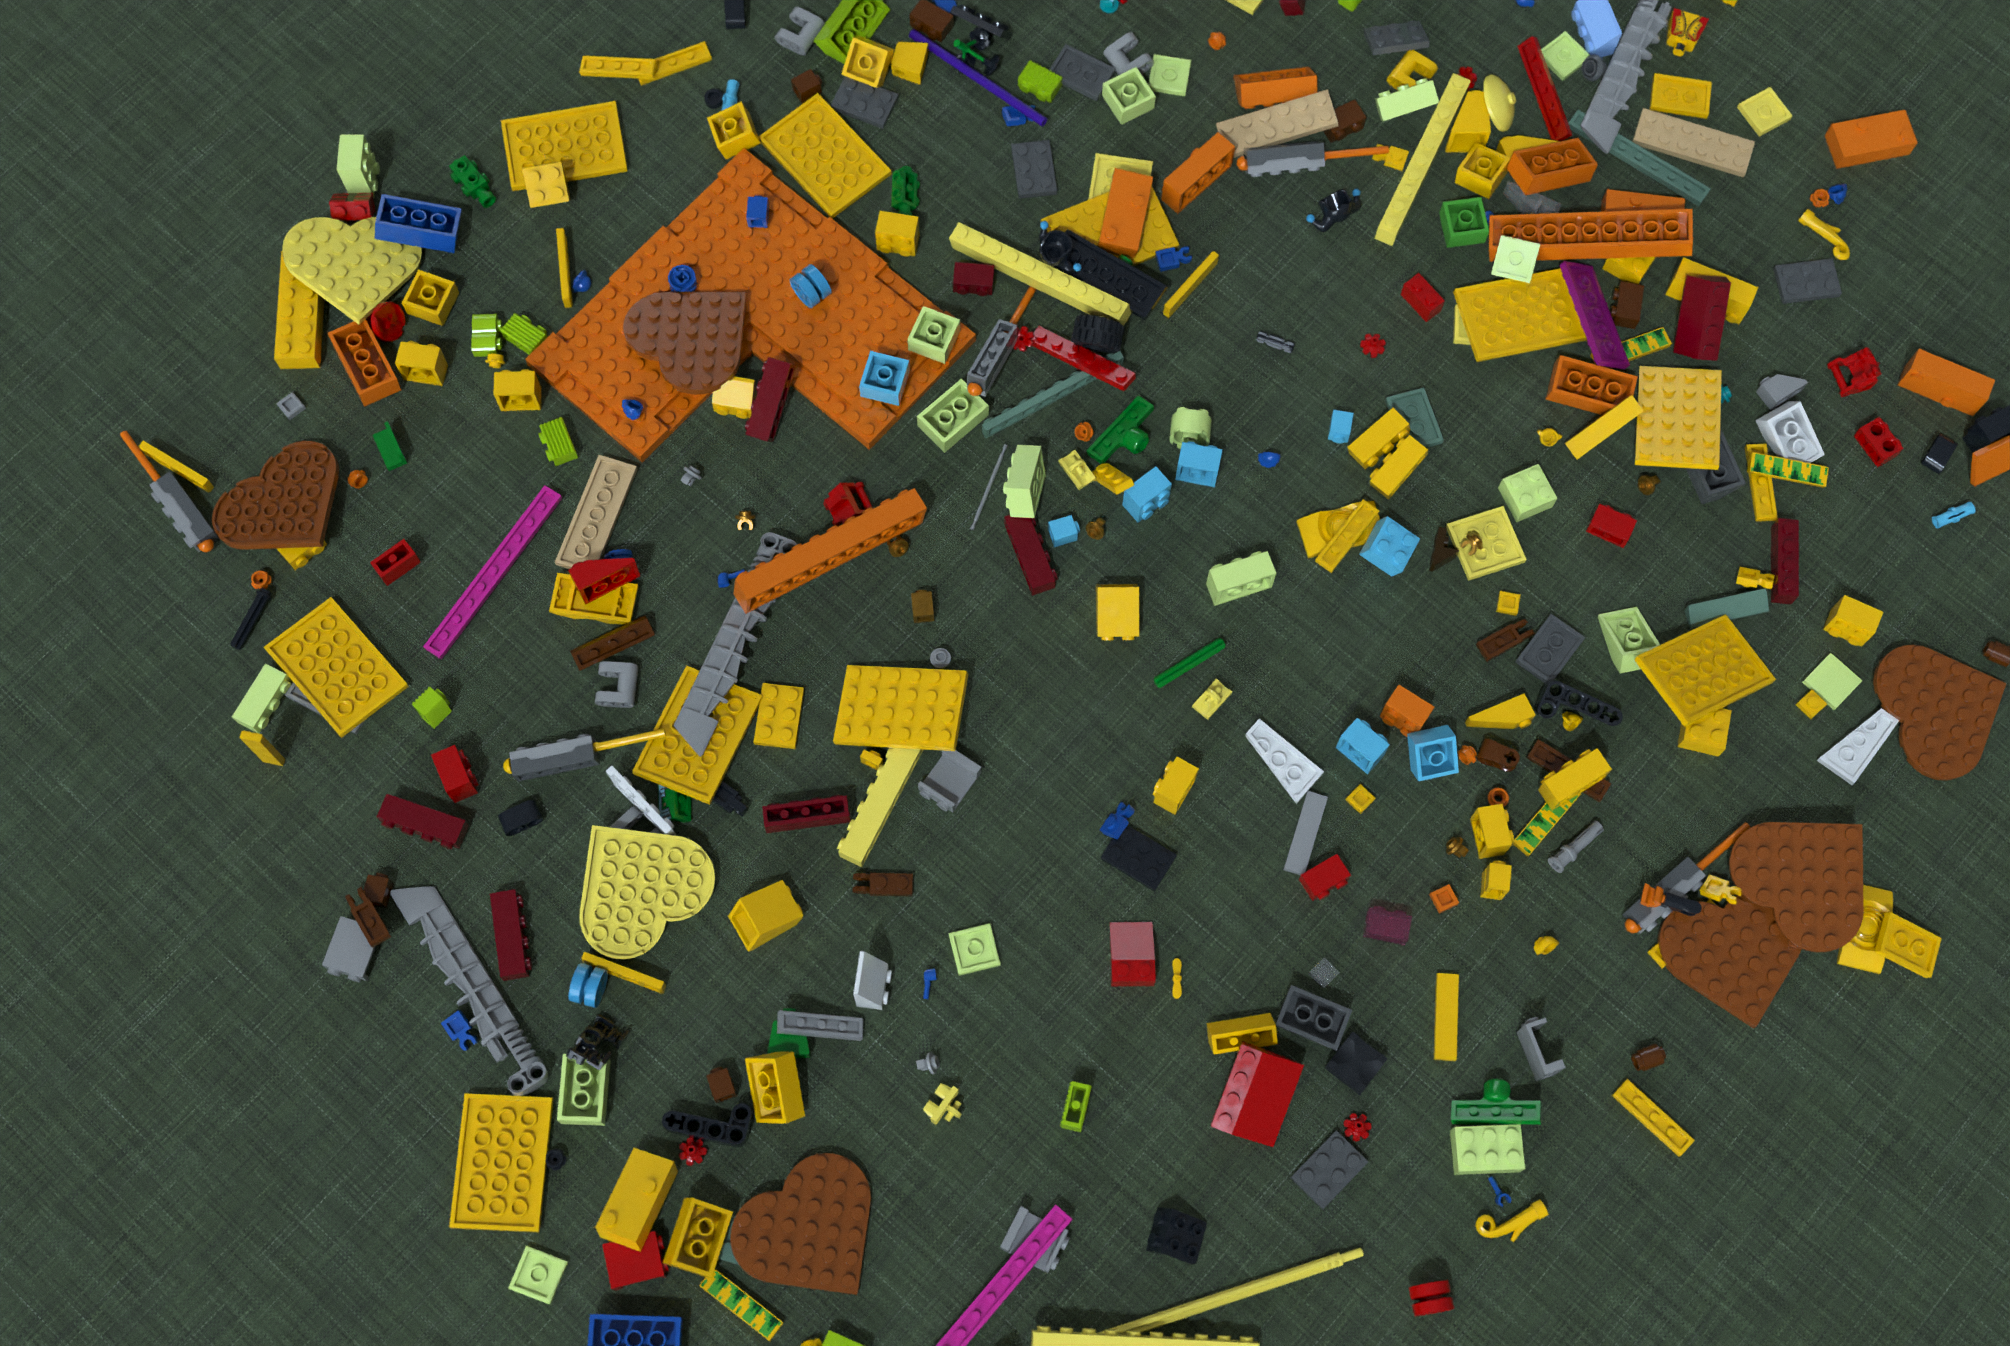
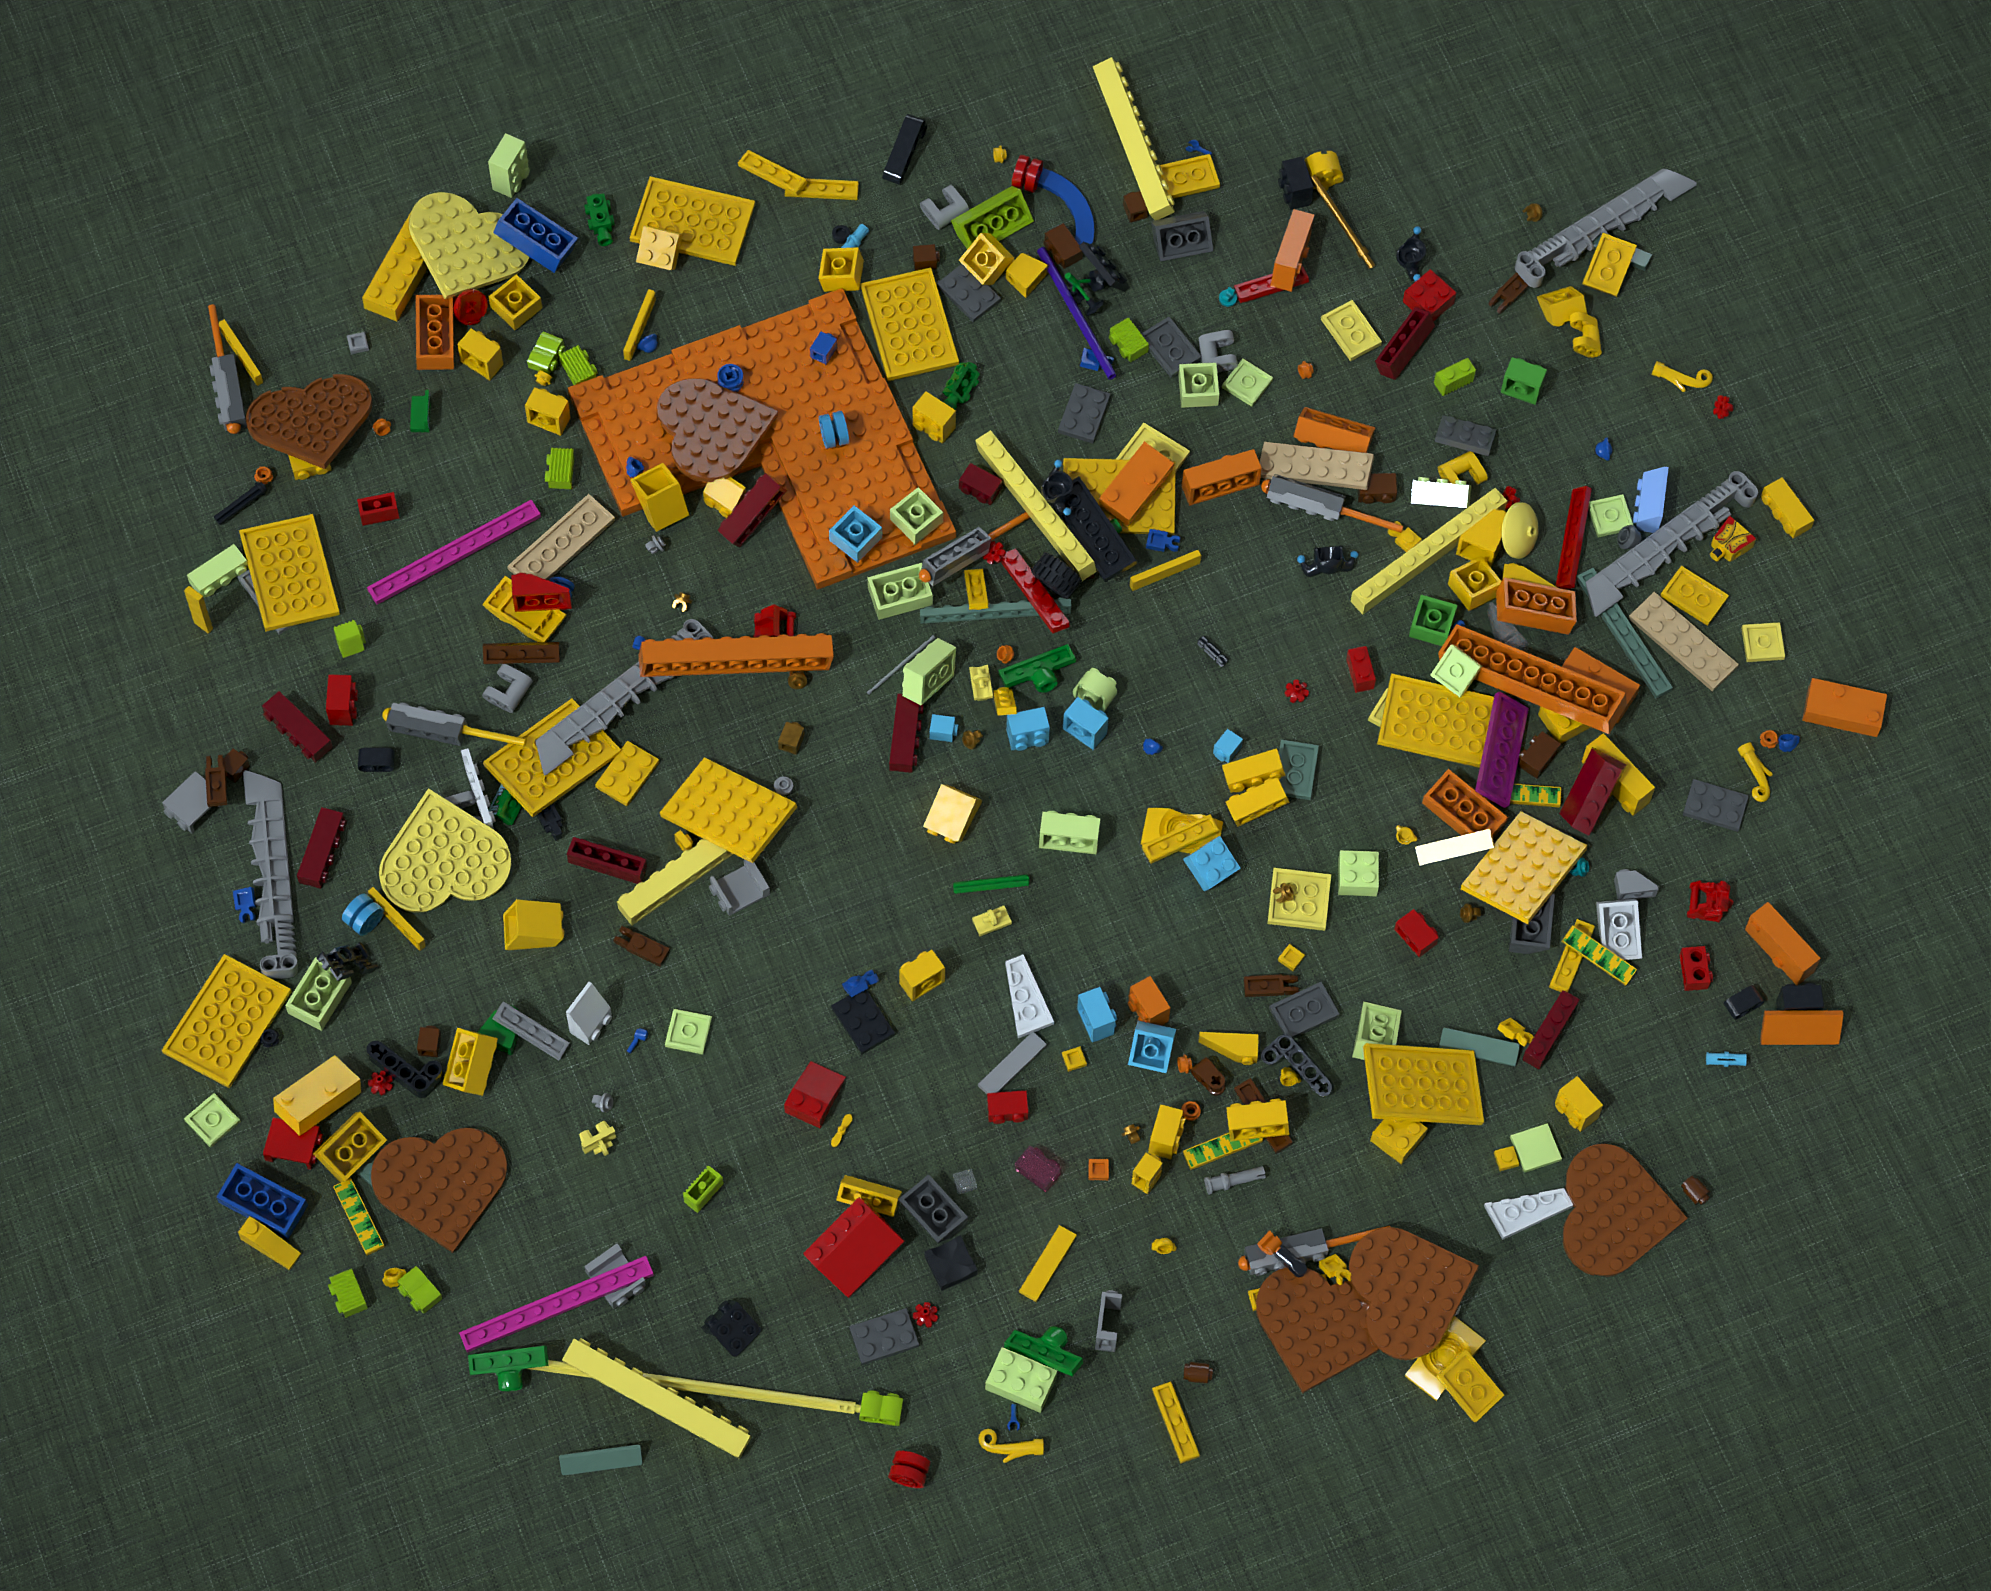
camera: 25 degrees right, 5 degrees down
(352, 206) = (489, 197): red brick -> none
(673, 426) = (660, 496): none -> yellow slope
(1025, 381) = (976, 589): none -> yellow plate
(1367, 1247) = (881, 1408): none -> lime brick
(1441, 554) = (1254, 890): dark brown slope -> none

